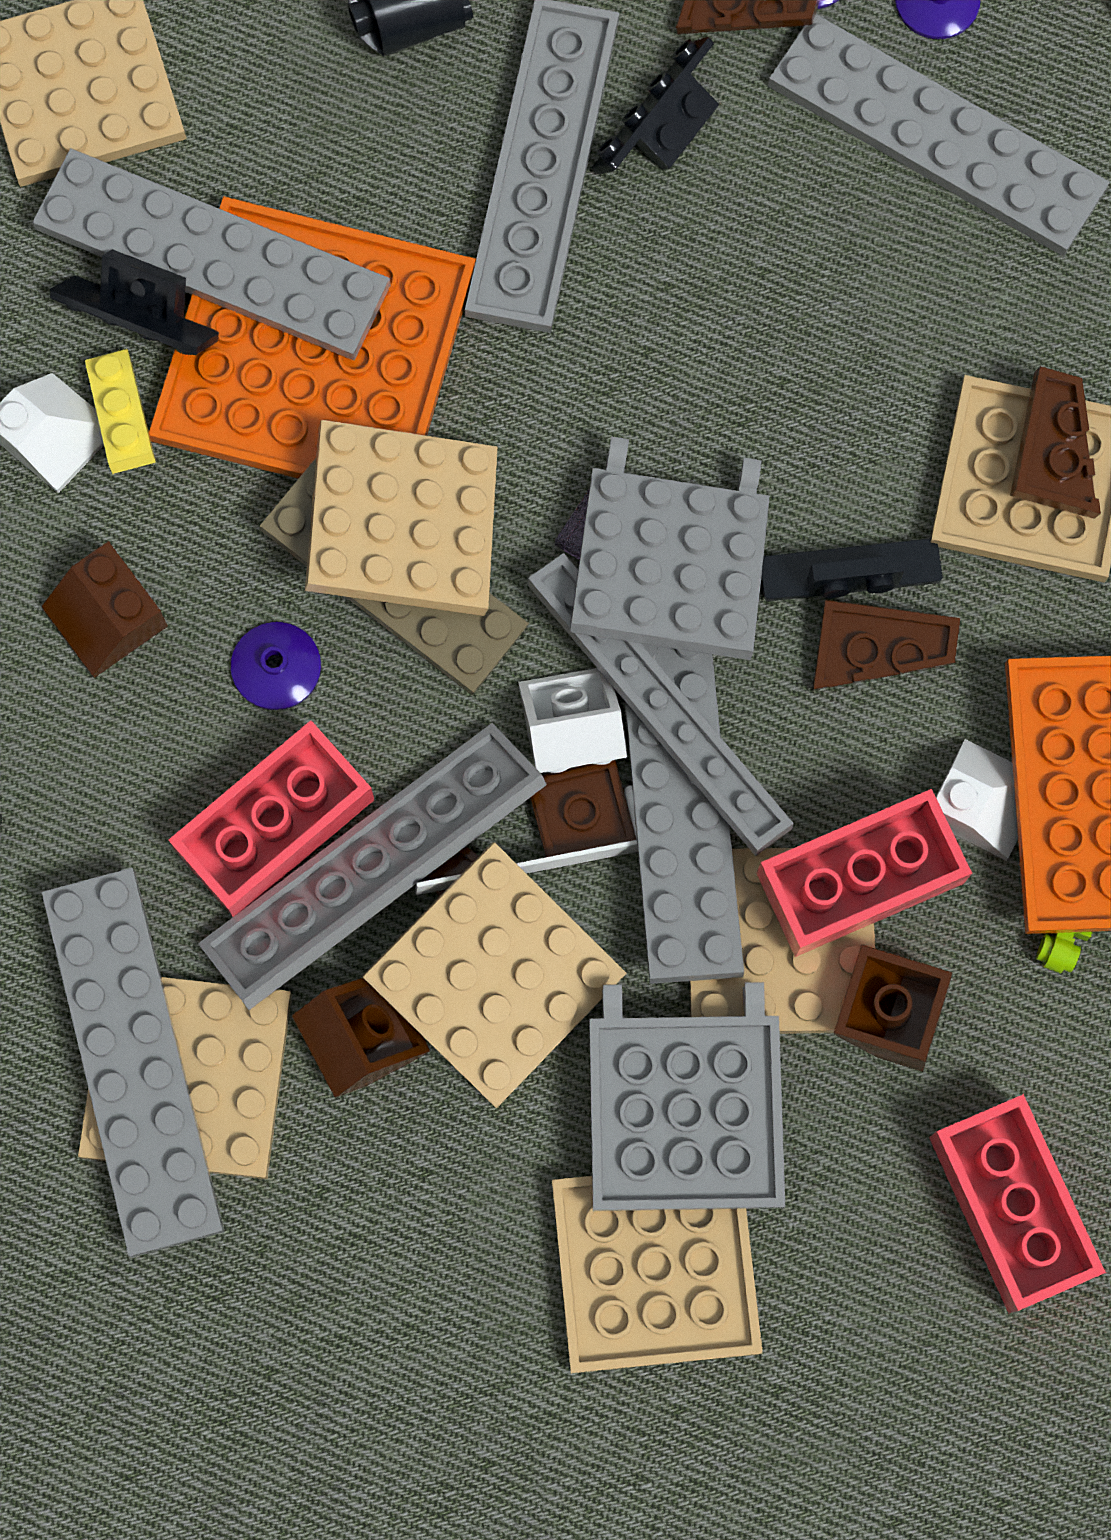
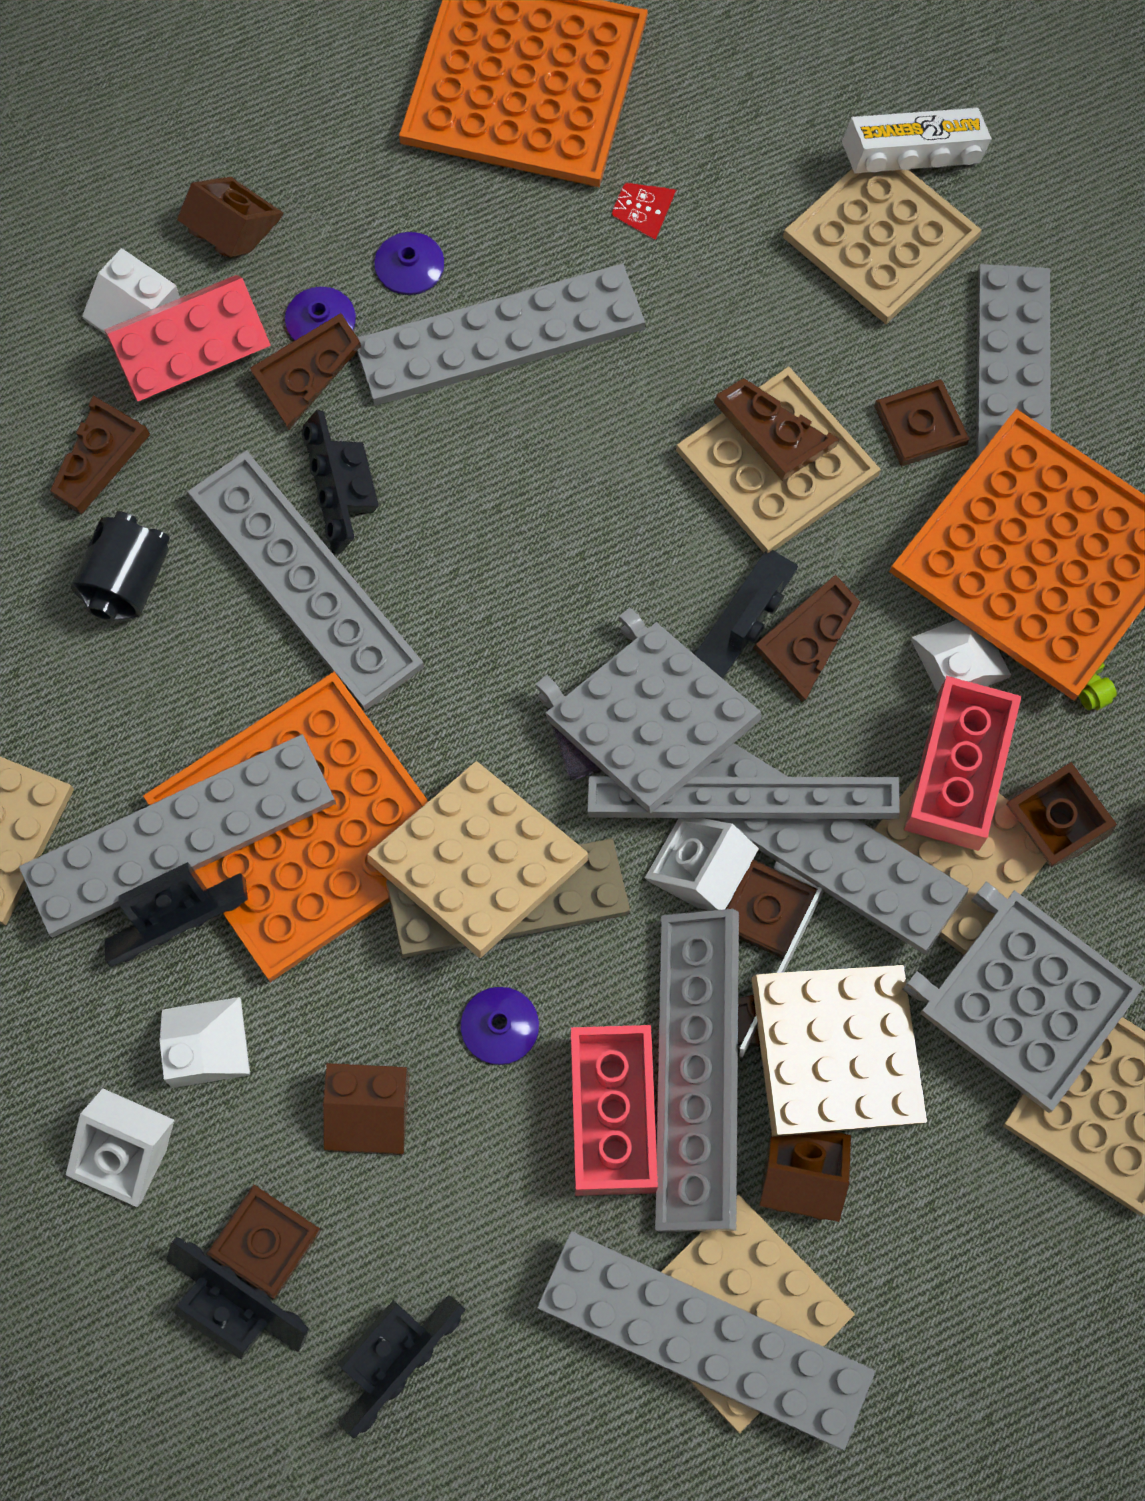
camera: 50 degrees left, 5 degrees down
(120, 411) = (234, 984): light yellow plate -> none

